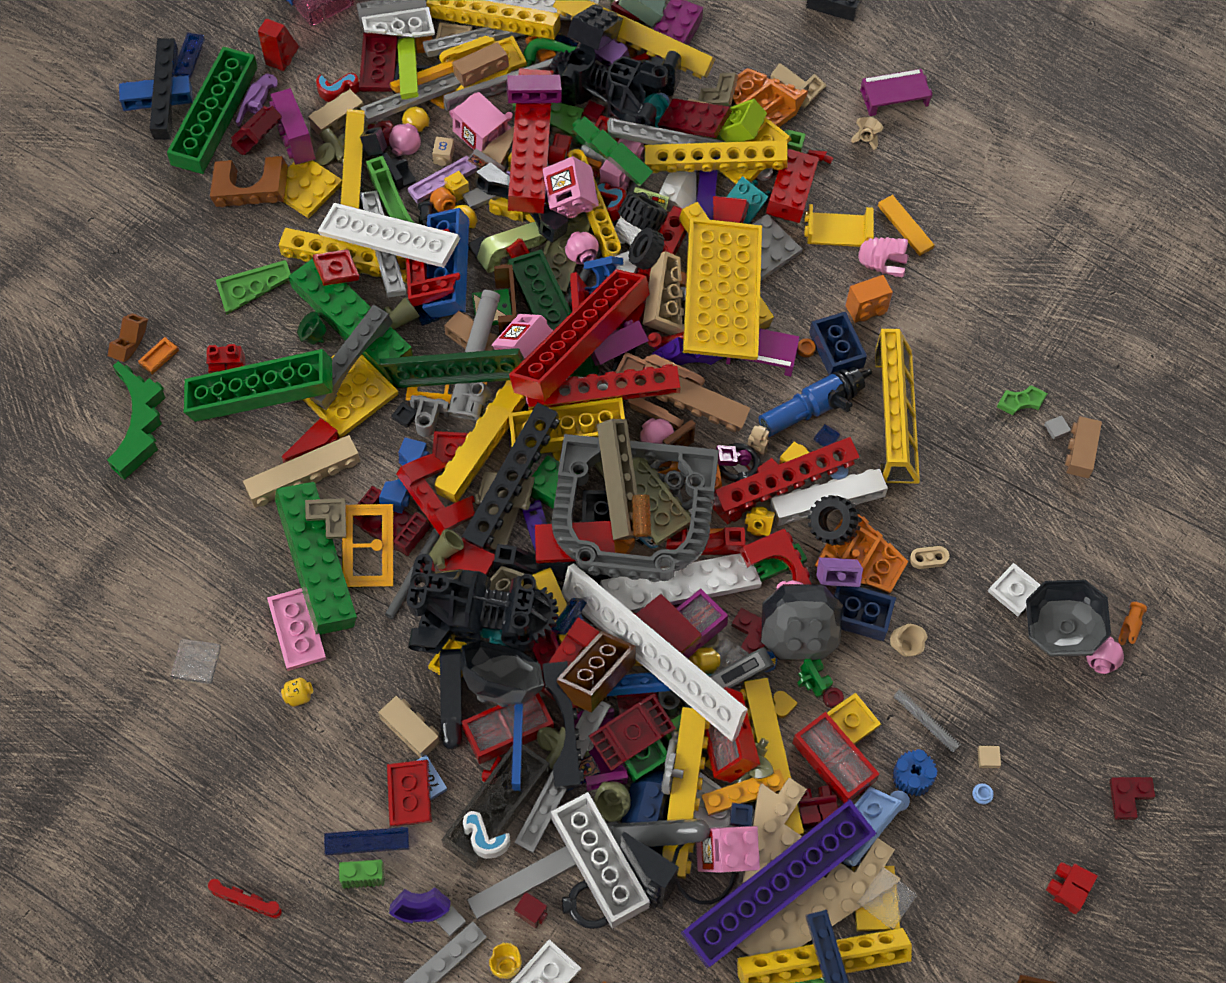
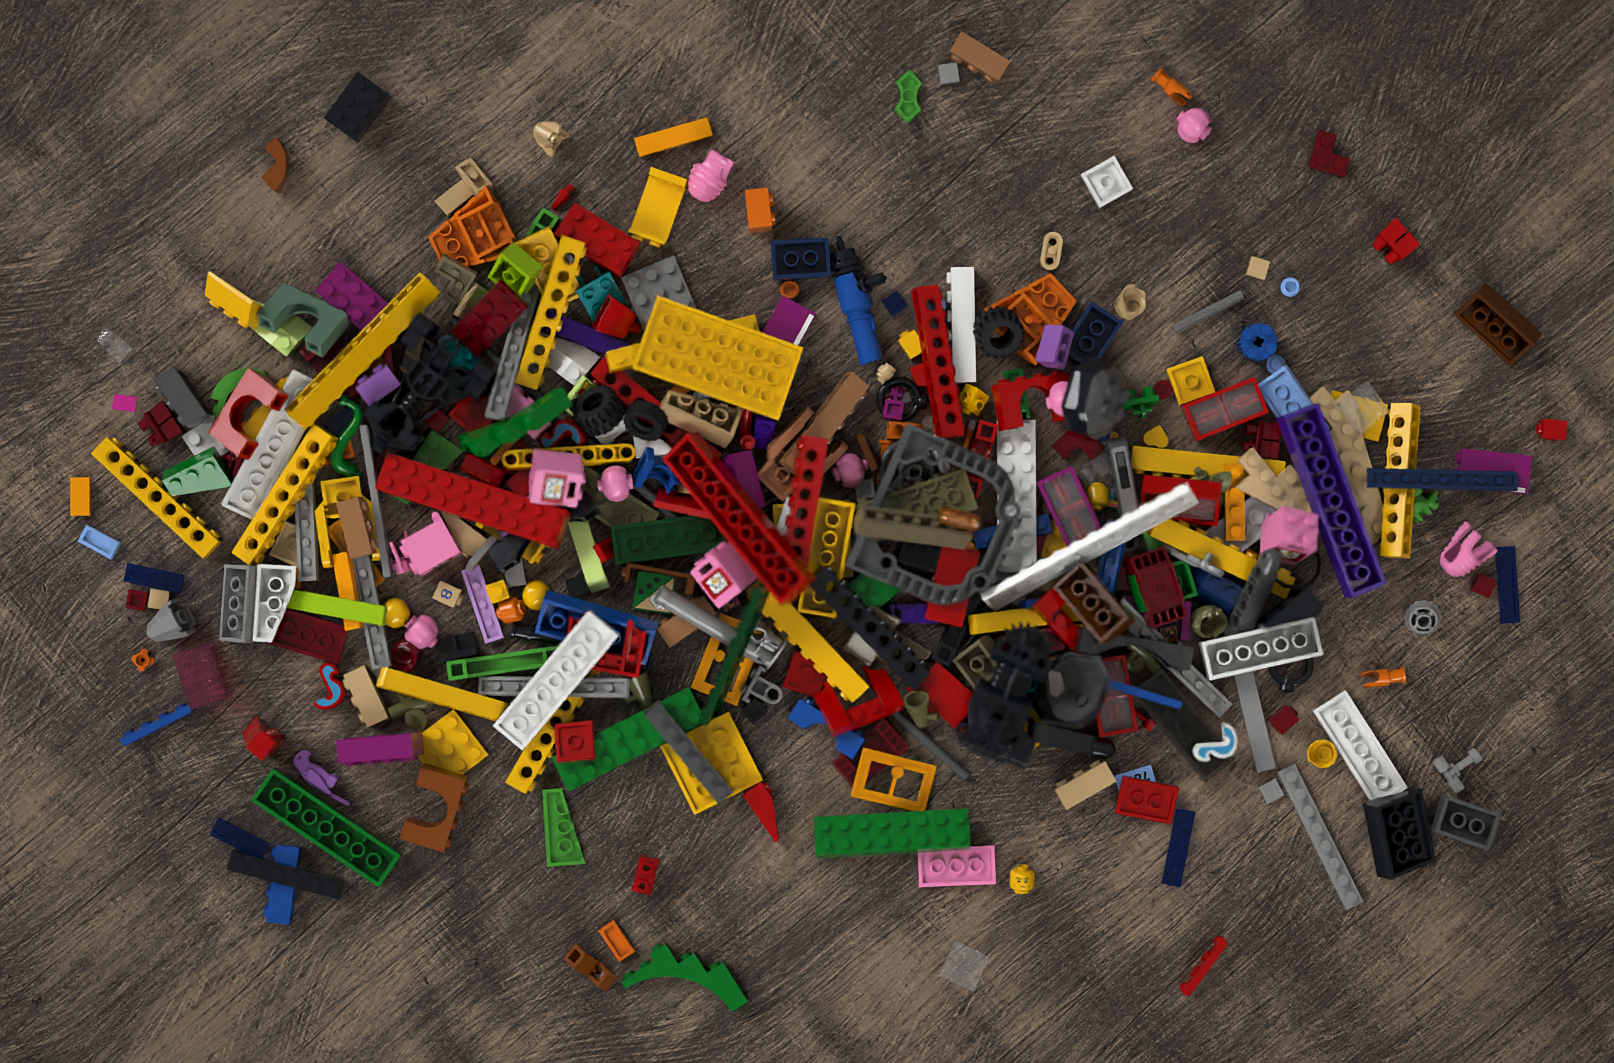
camera: 75 degrees left, 25 degrees up
(255, 129) = (379, 787): dark red plate -> none
(258, 385) = (699, 849): green brick -> none
(303, 469) = (792, 825): tan brick -> none
(311, 329) = (632, 782): dark green piece -> none
(330, 510) = (857, 808): dark tan plate -> none
(361, 873) = (1210, 858): bright green brick -> none
(373, 141) = (424, 666): black brick -> none
(419, 907) = (1255, 815): dark purple brick -> none
(533, 89) = (418, 482): magenta brick -> none
(569, 616) = (1027, 611): tile -> none
(595, 26) = (360, 395): black brick -> none
(669, 623) = (1068, 525): dark red tile -> none
(741, 815) = (1257, 512): dark blue tile -> none
(895, 89) = (504, 87): magenta panel -> none
(896, 361) = (891, 225): yellow window -> none
(1068, 618) = (1159, 150): dark grey rock -> none

